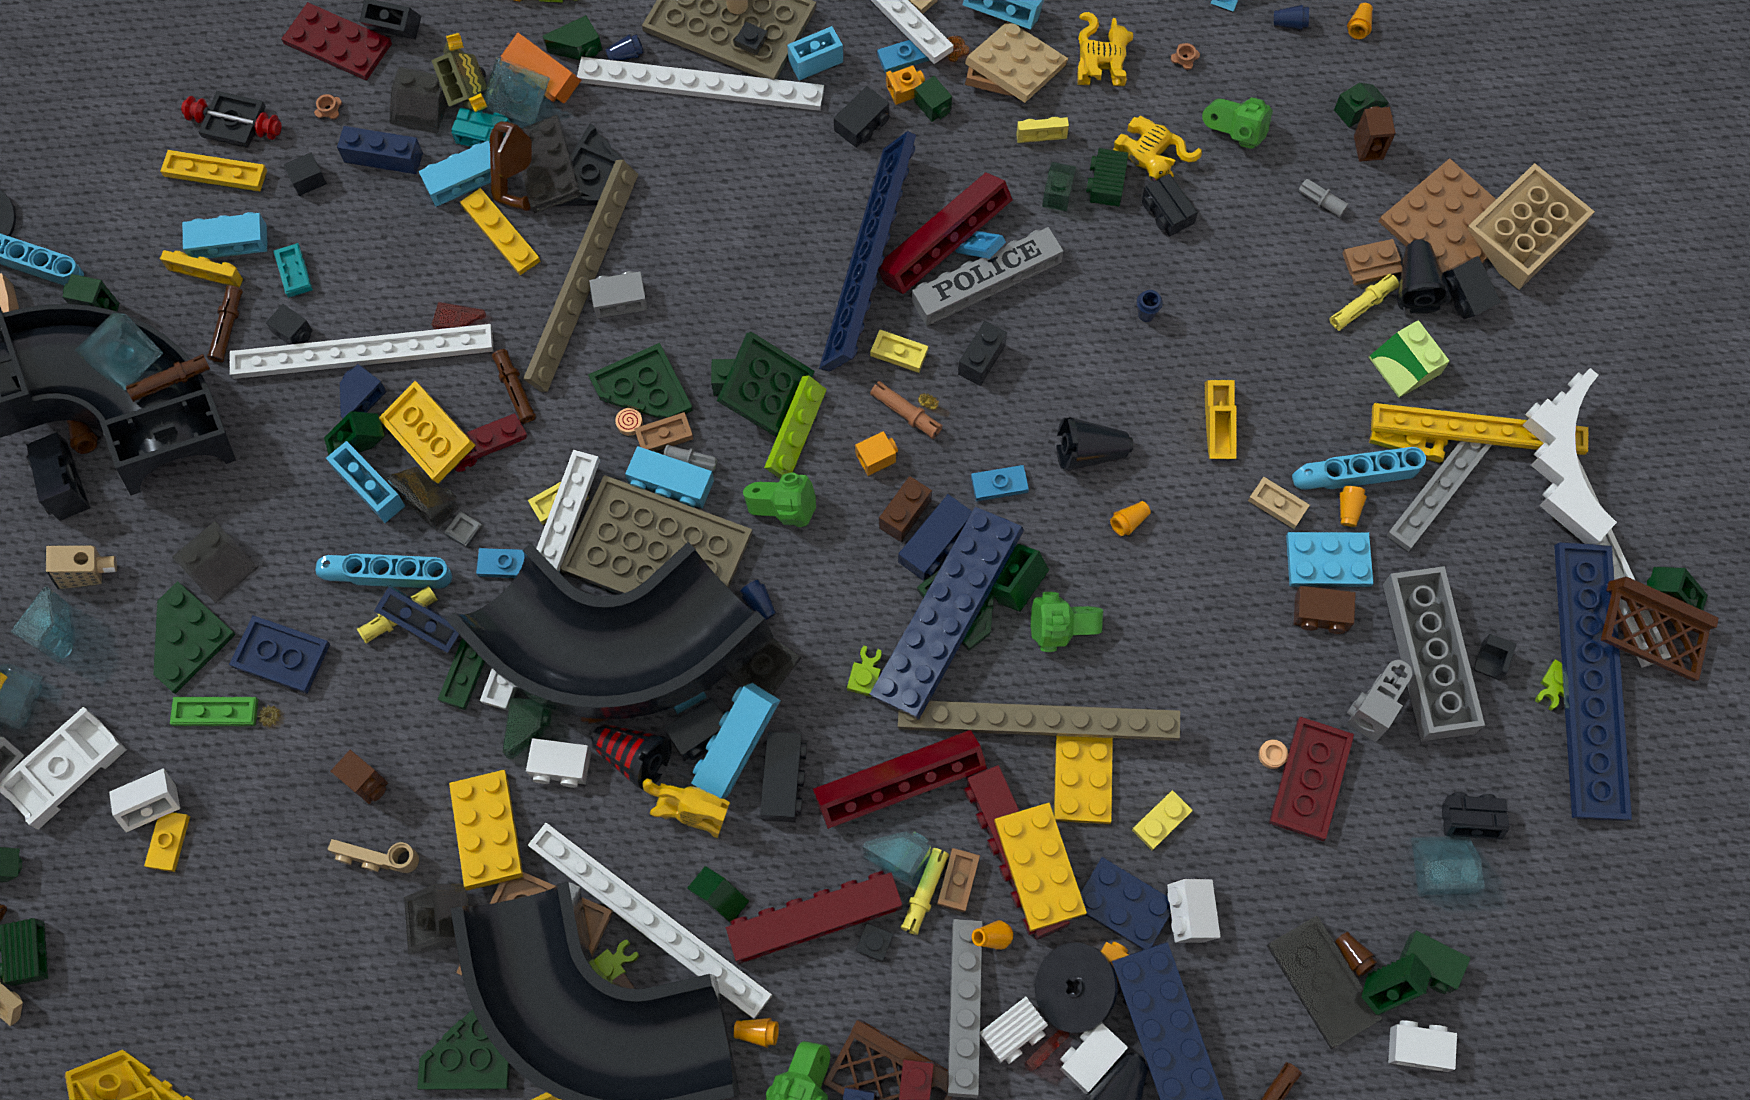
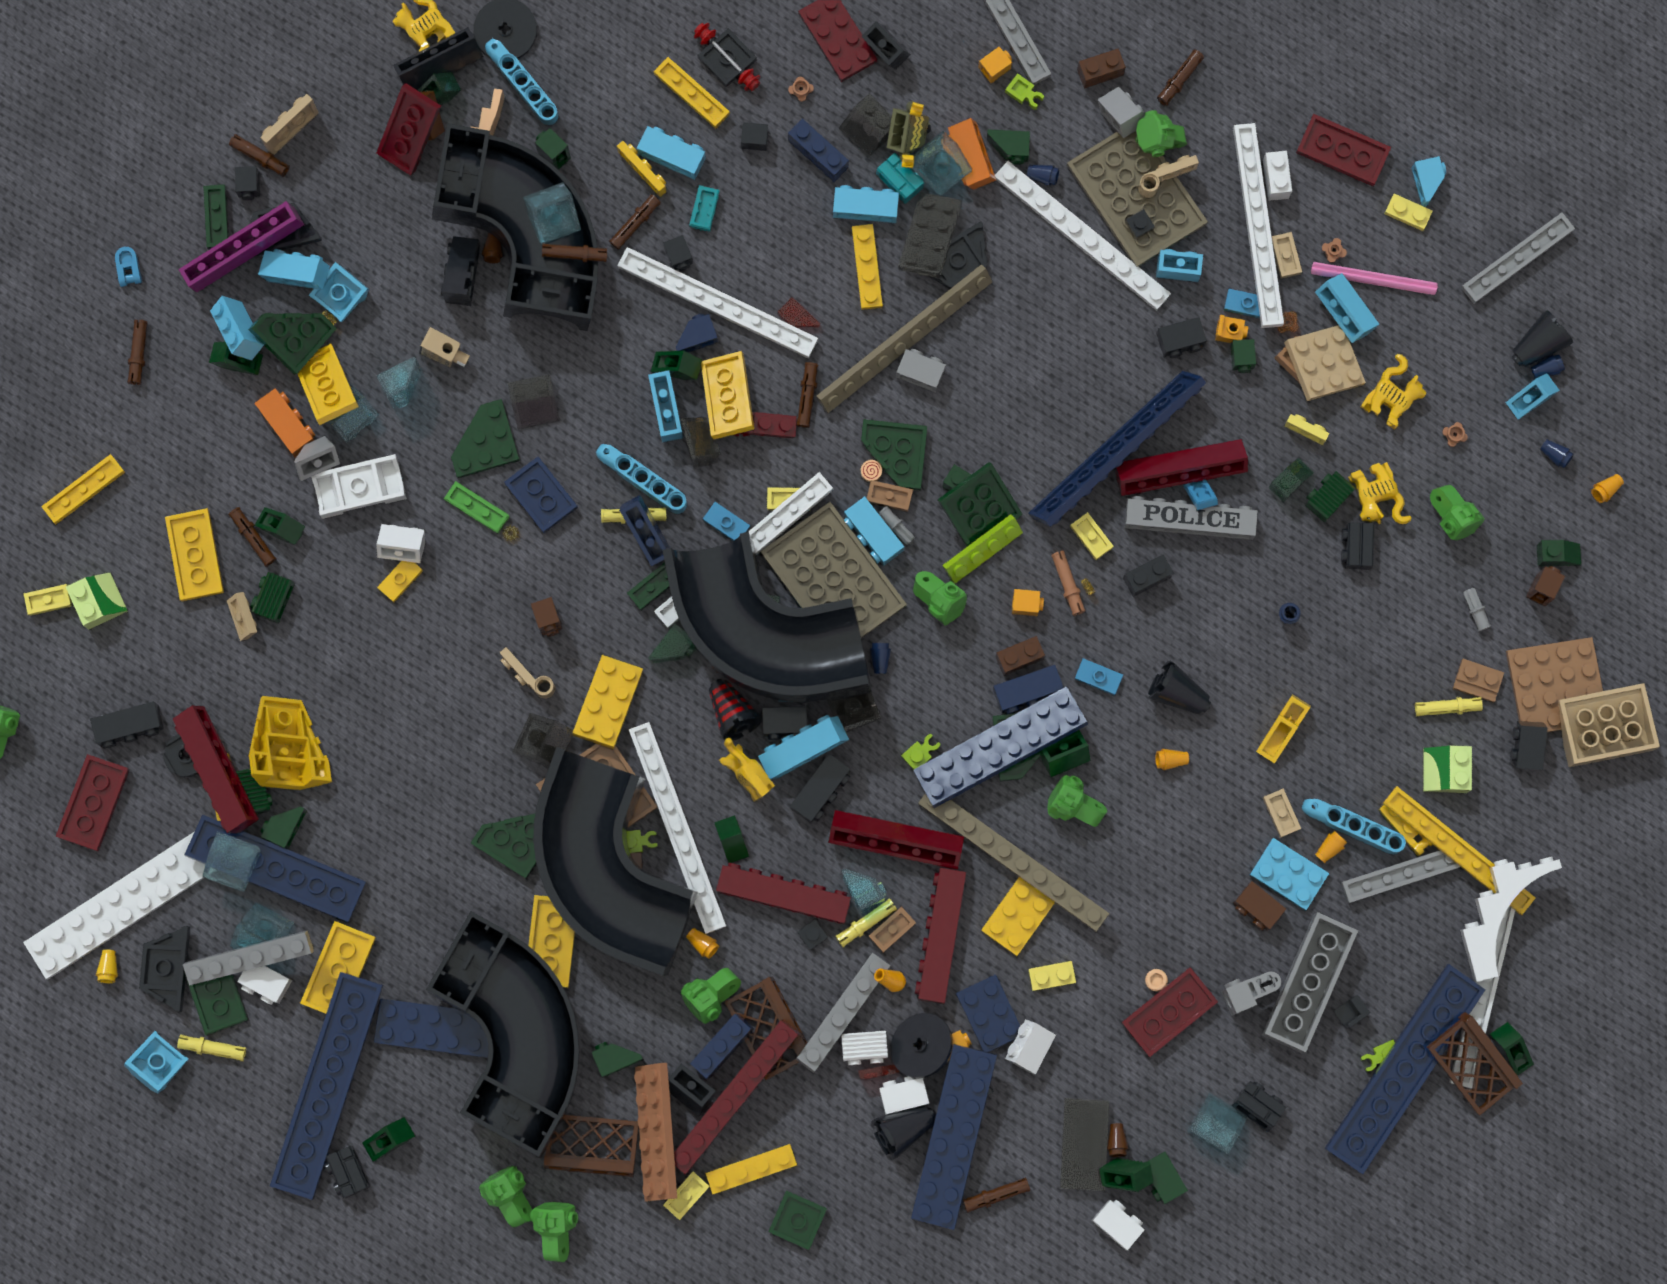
camera: 30 degrees right, 10 degrees up
(463, 529) = (712, 480): flat silver tile -> none
(507, 158) = (901, 222): reddish brown piece -> none
(558, 762) = (681, 686): white brick -> none
(1040, 867) = (948, 955): yellow plate -> none
(1422, 280) = (1499, 716): black cone -> none

